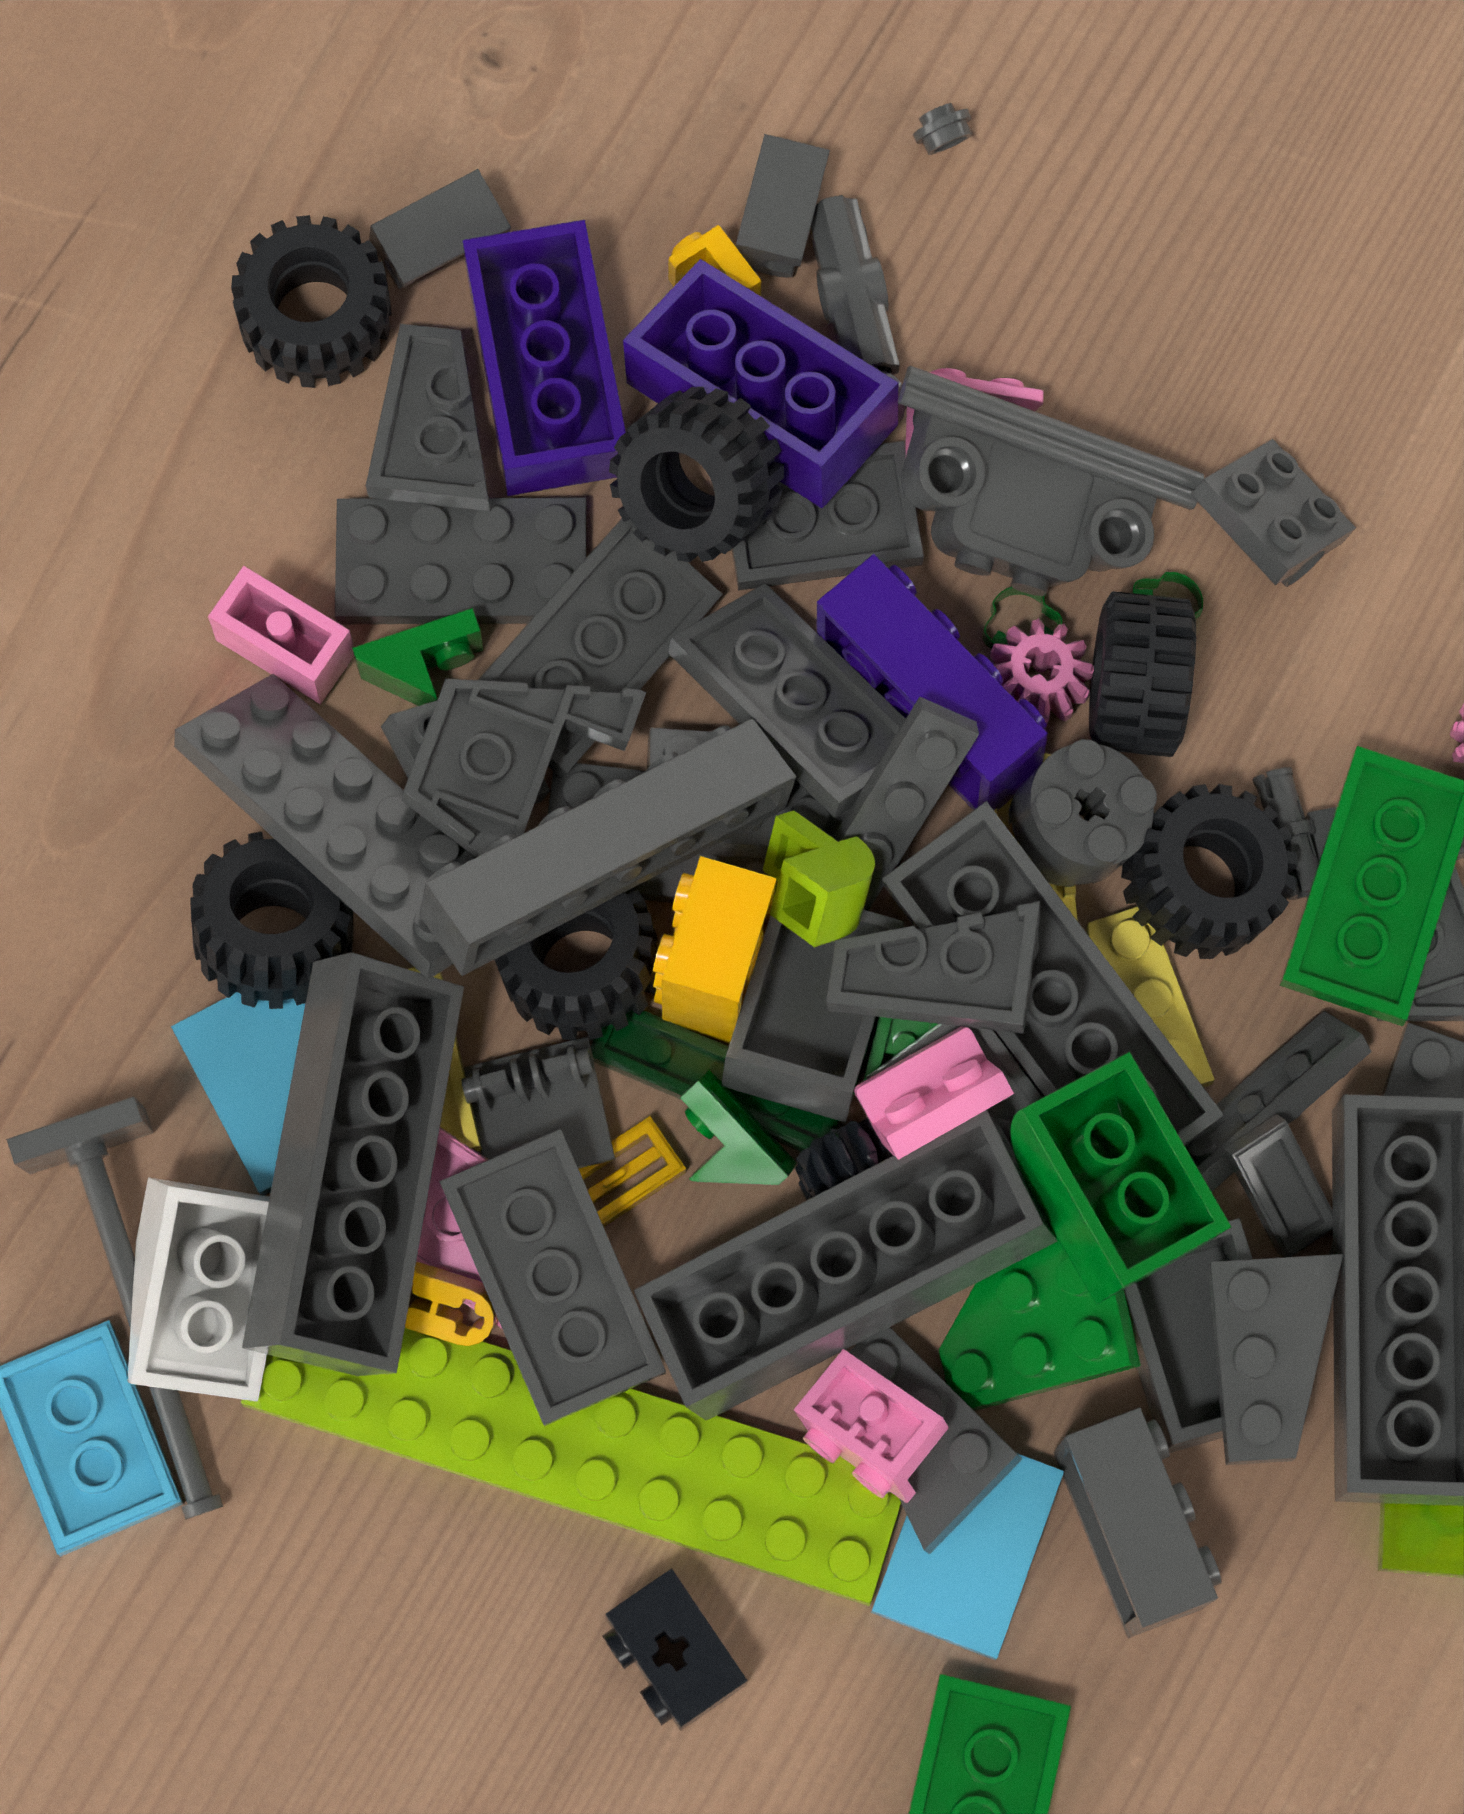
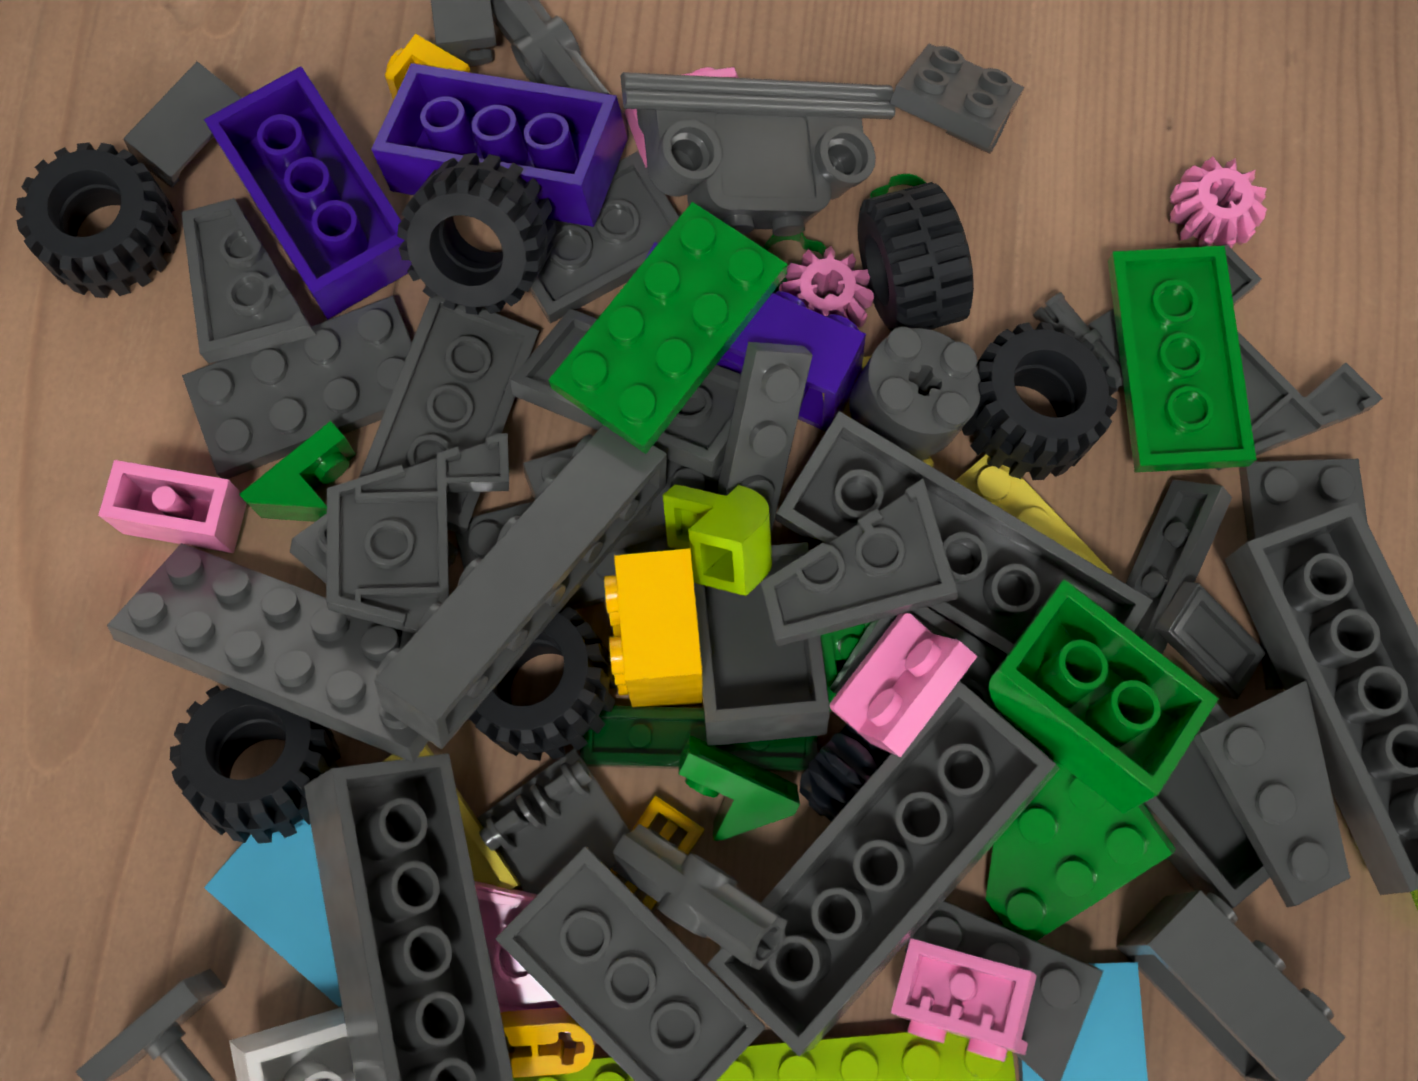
camera: 20 degrees left, 0 degrees up
(651, 1220) = (699, 896): none -> dark grey piece
(850, 648) = (668, 327): none -> green plate

